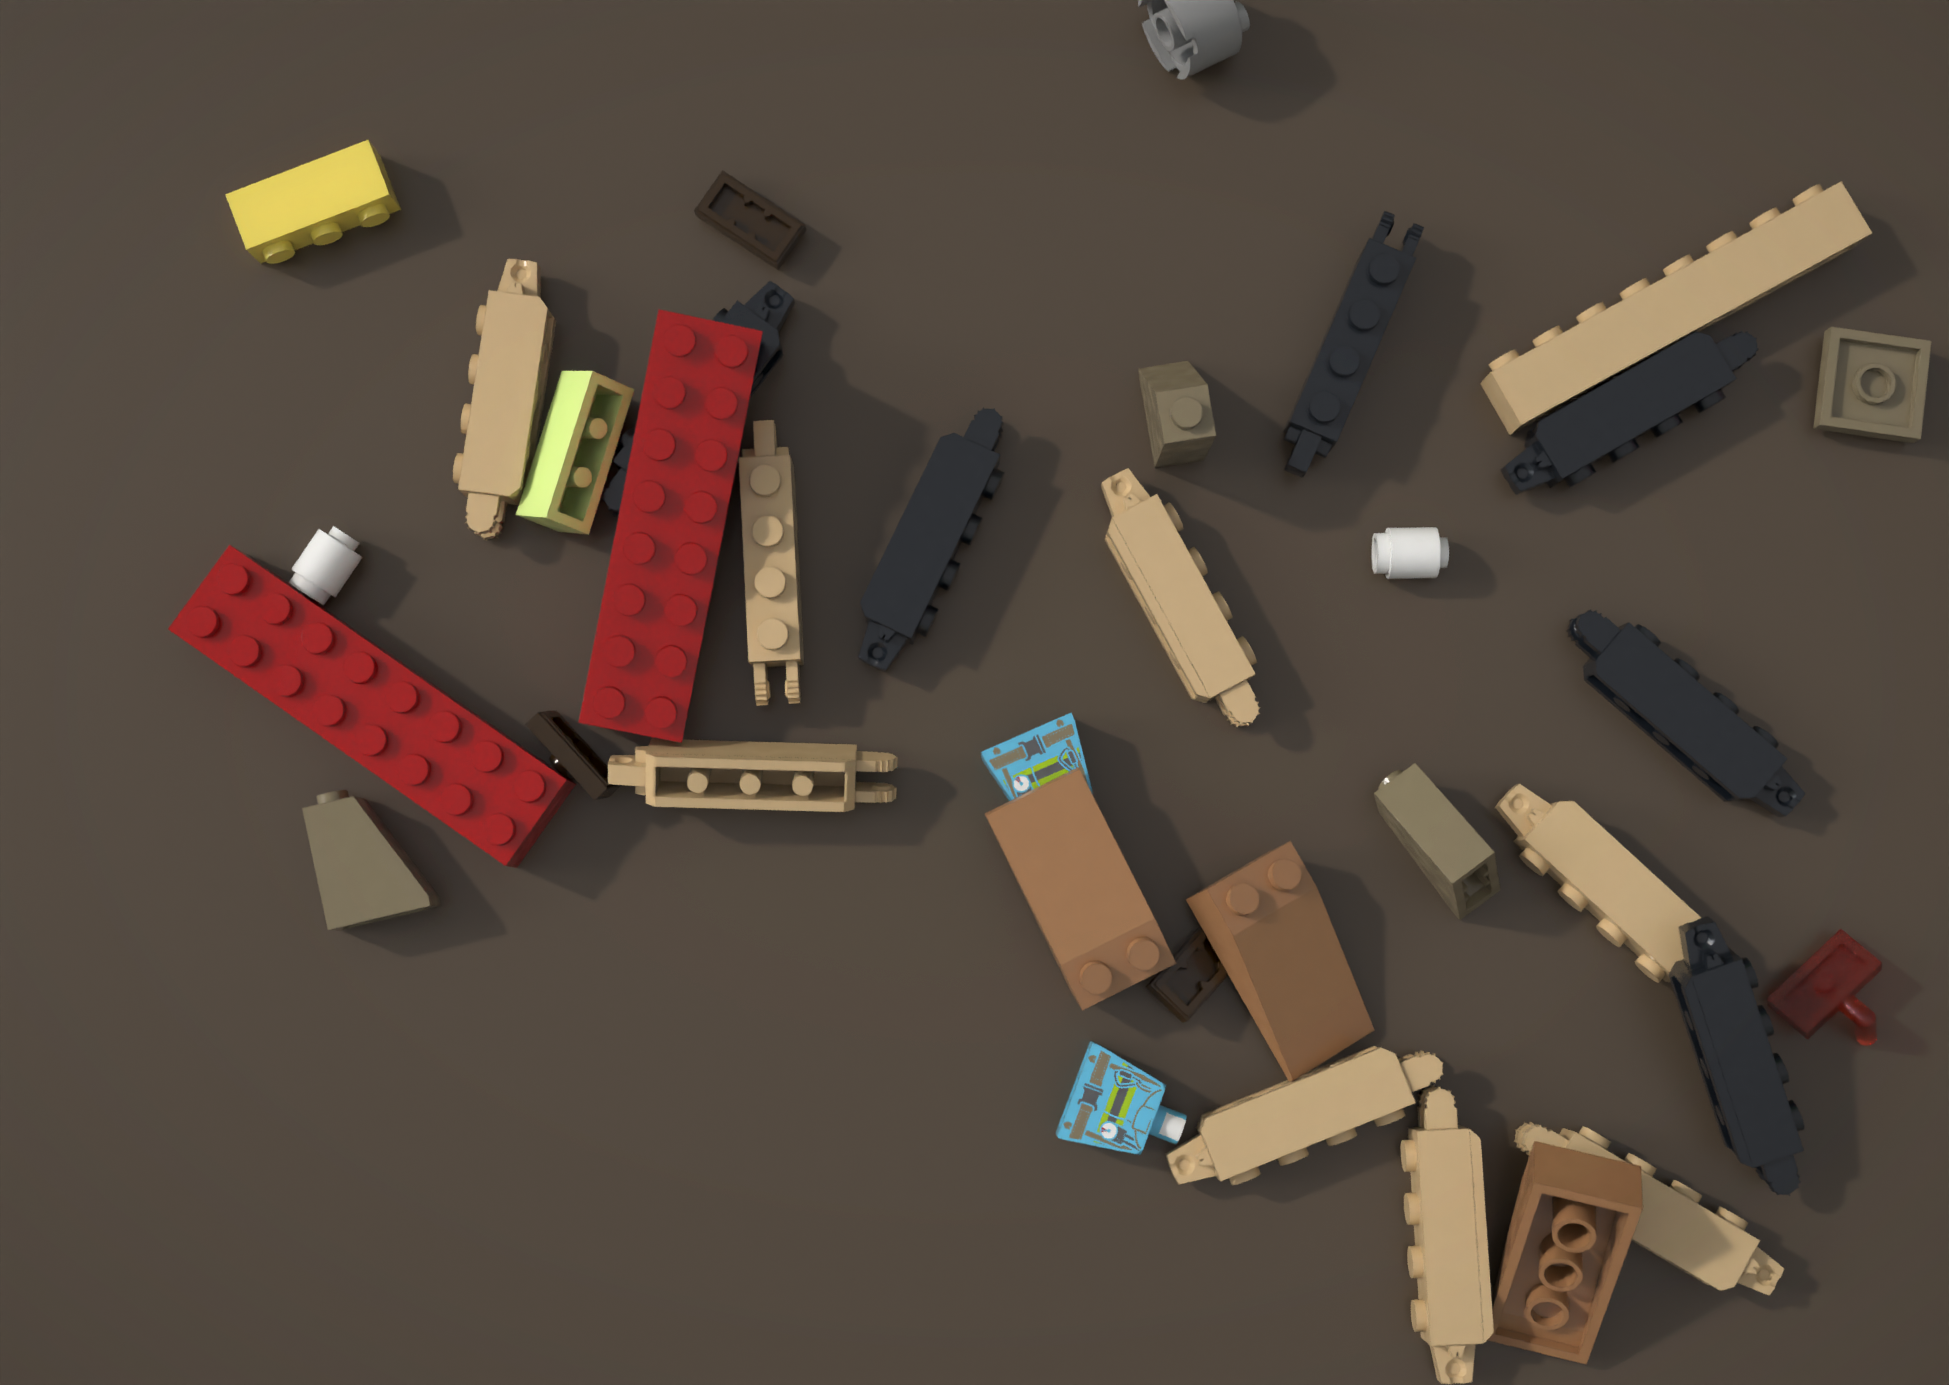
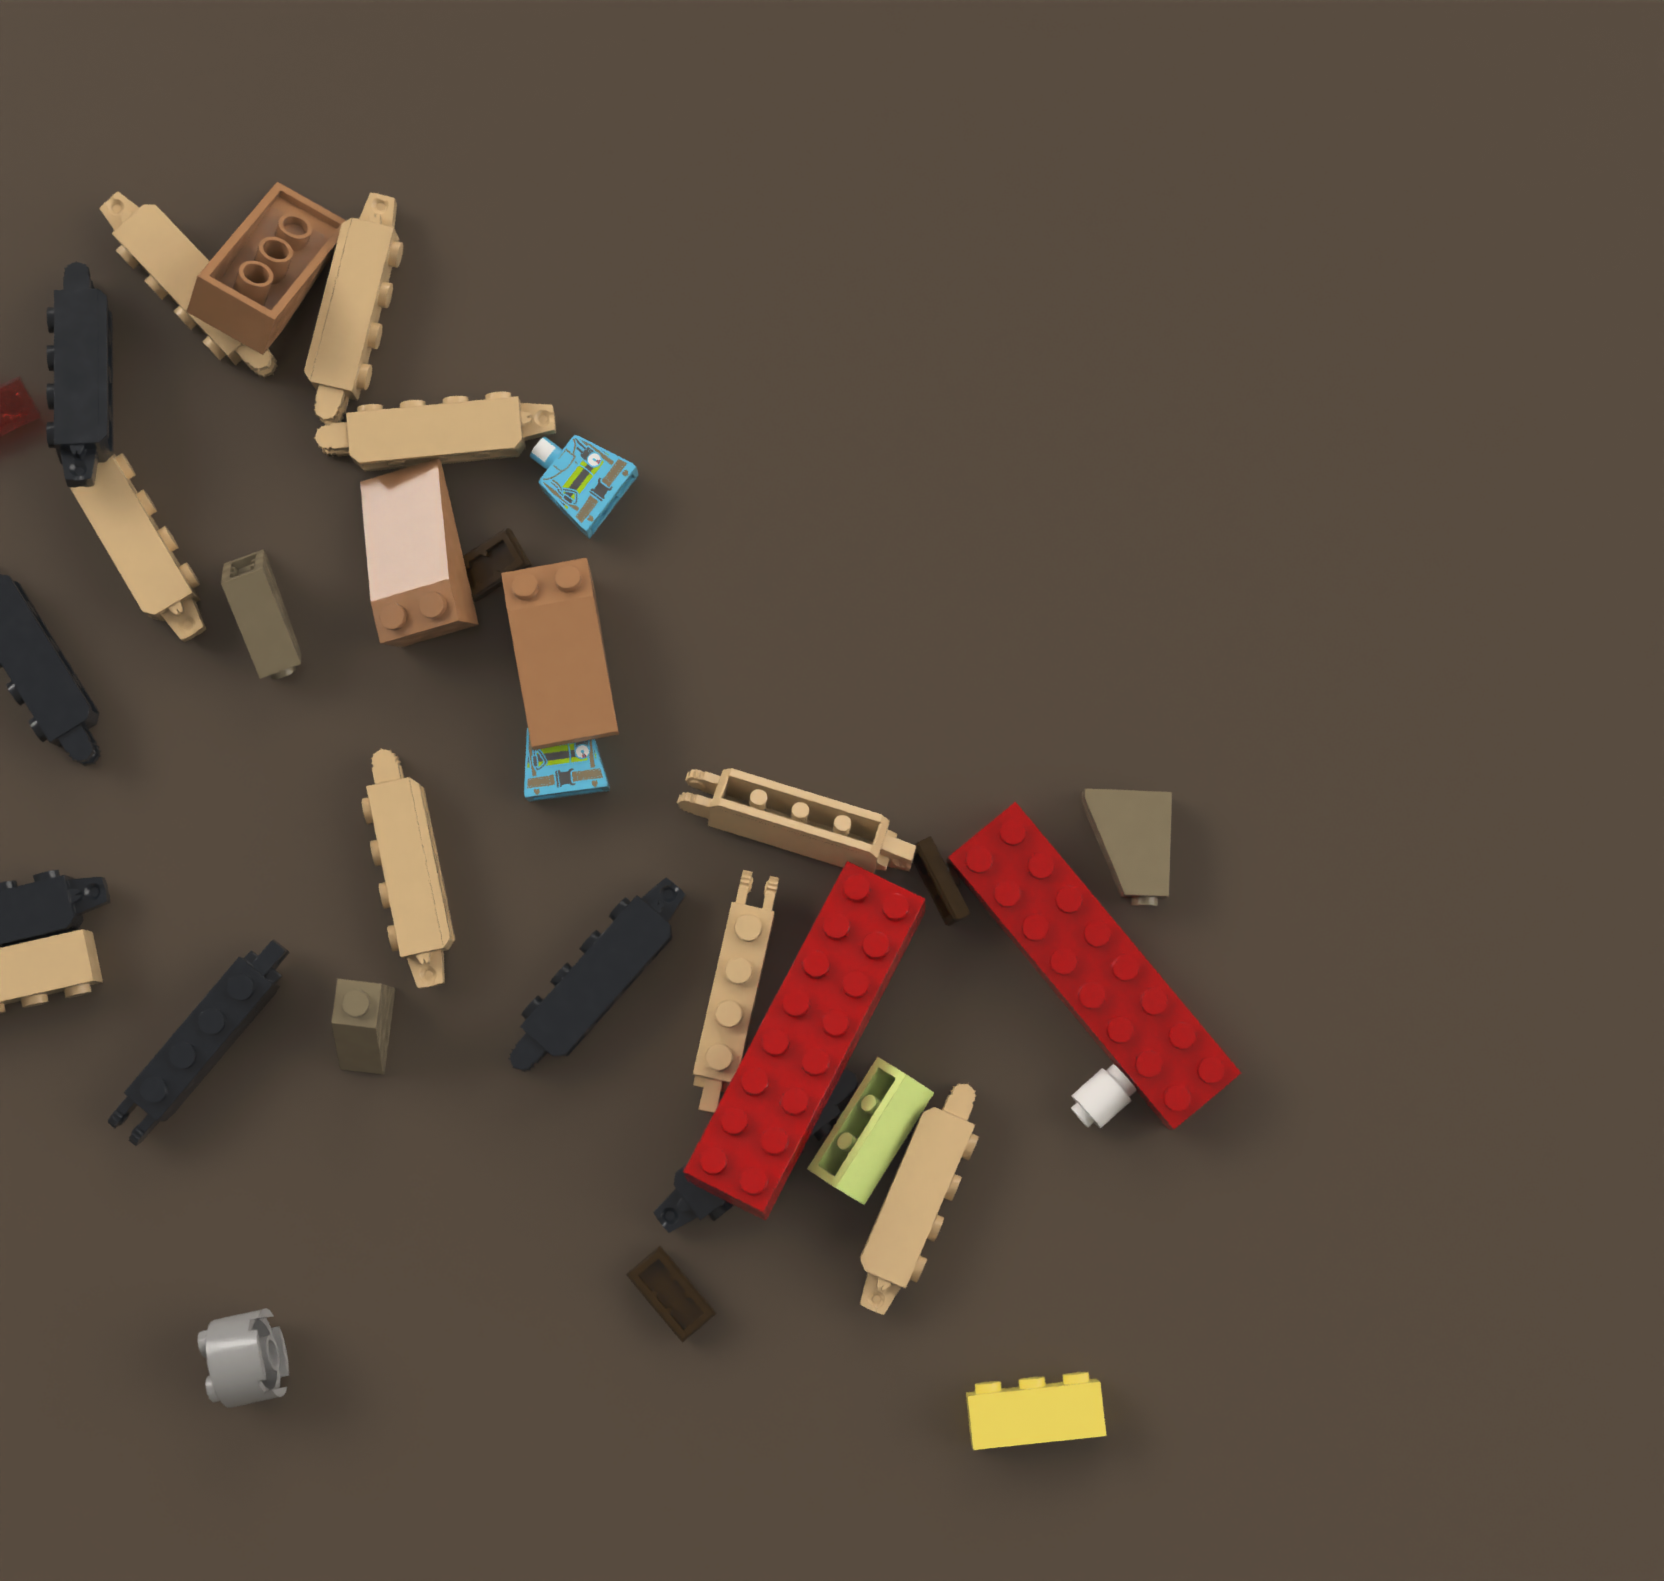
camera: 165 degrees left, 0 degrees up
(1409, 553) = (208, 853): white brick -> none

